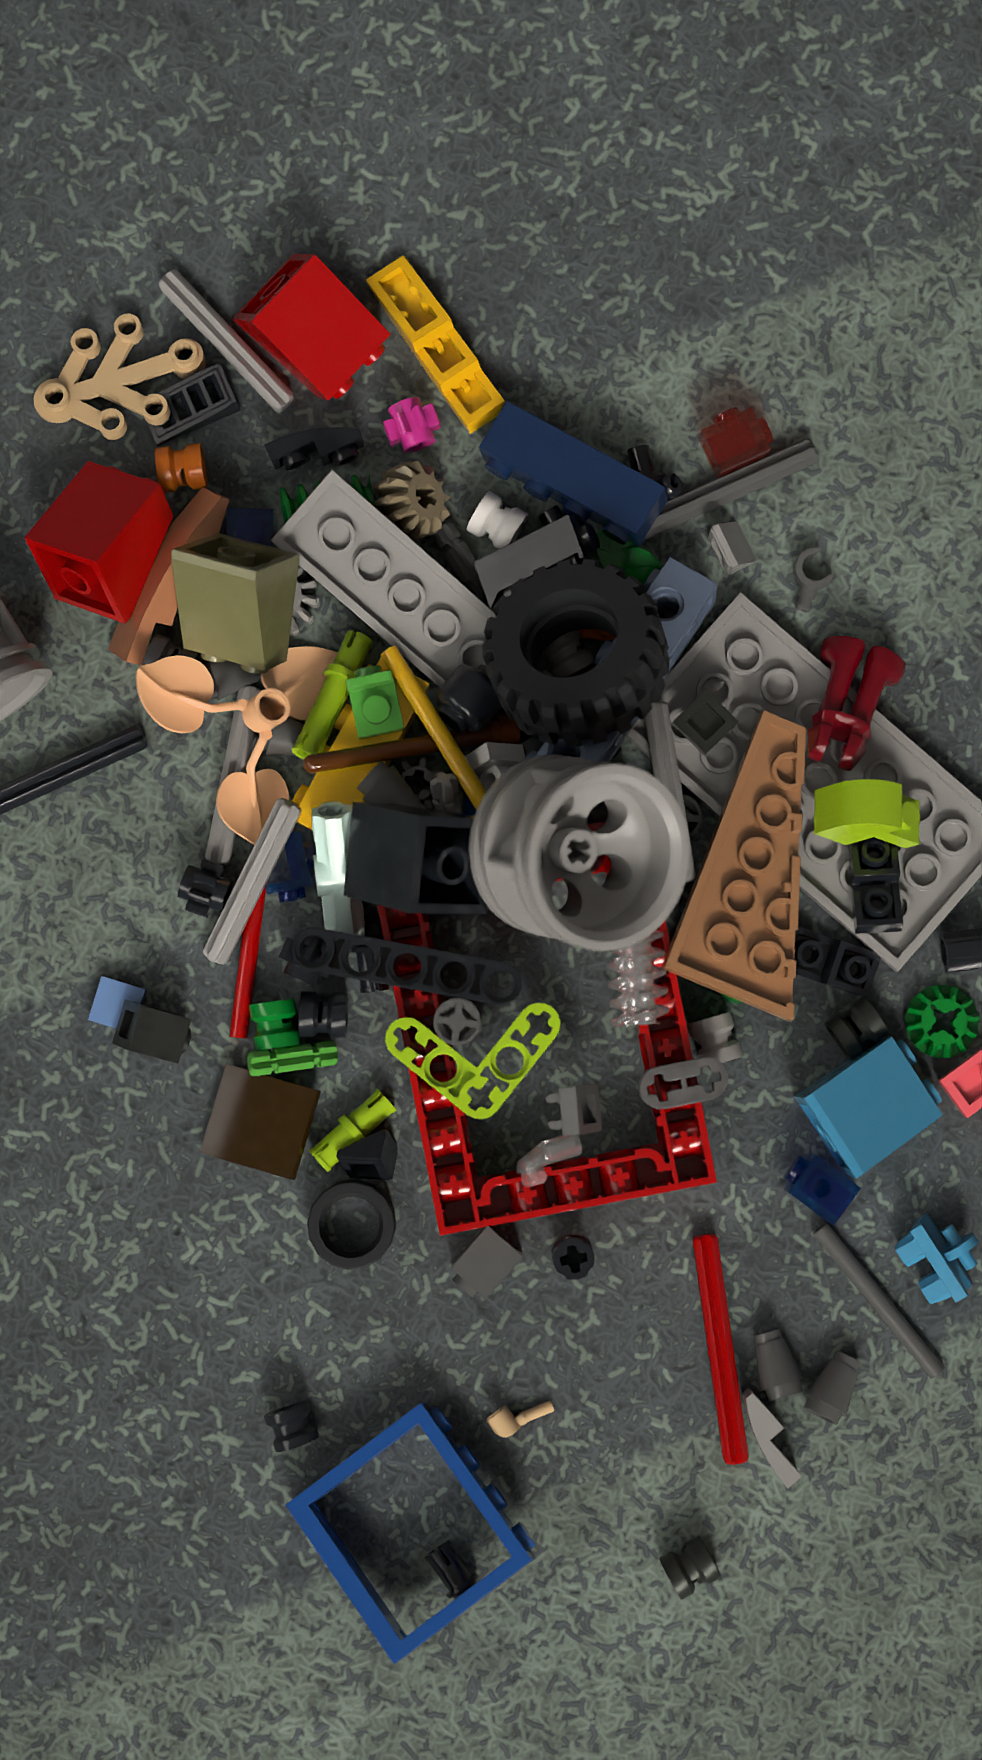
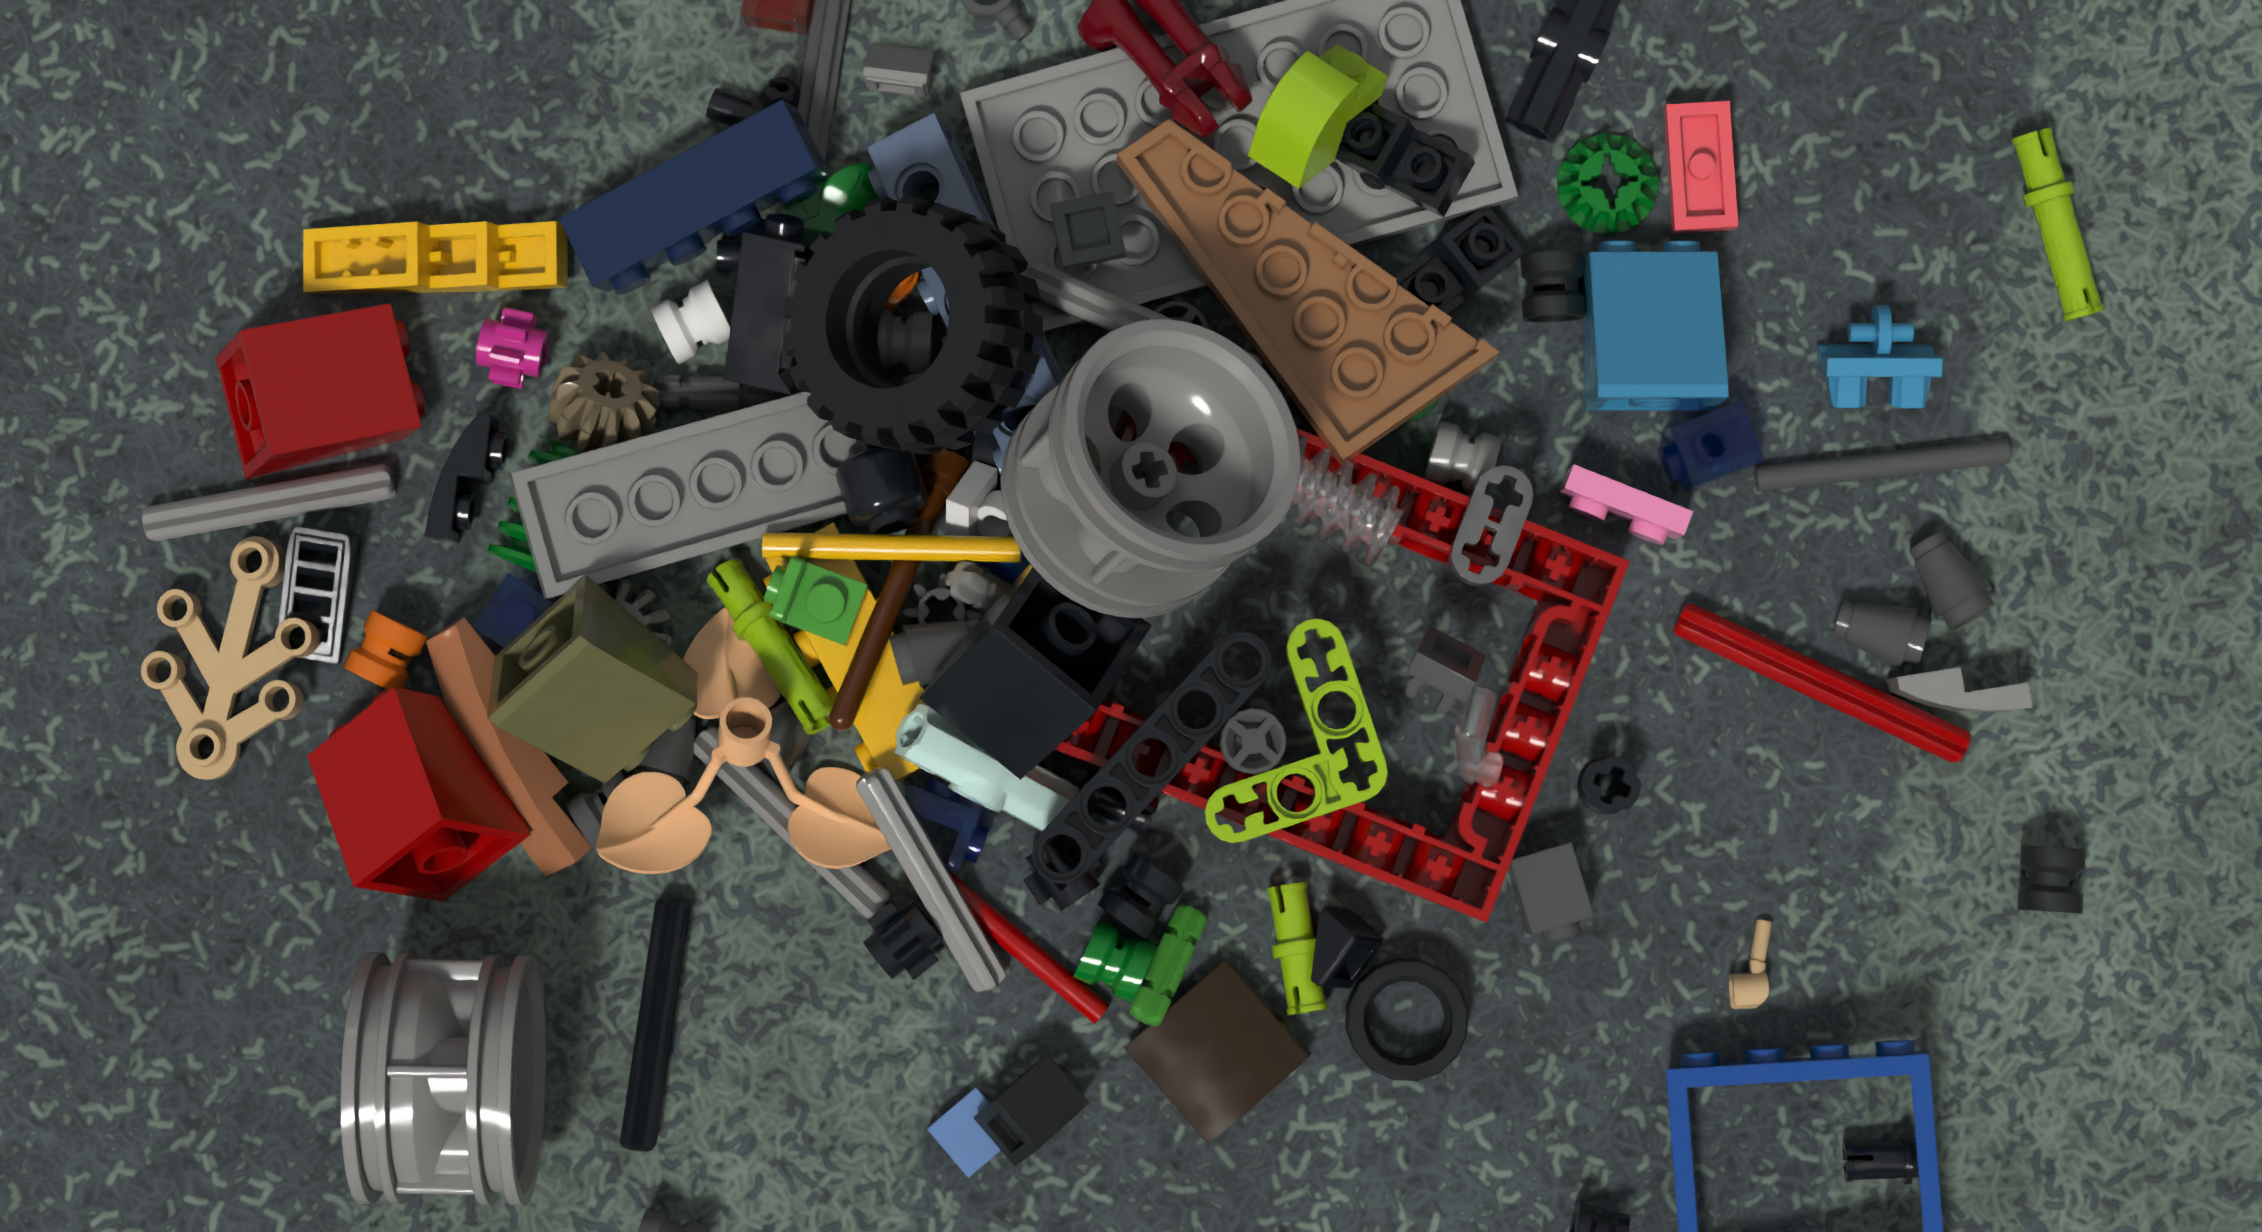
camera: 60 degrees left, 0 degrees up
(754, 1177) = (1649, 515): none -> bright pink plate

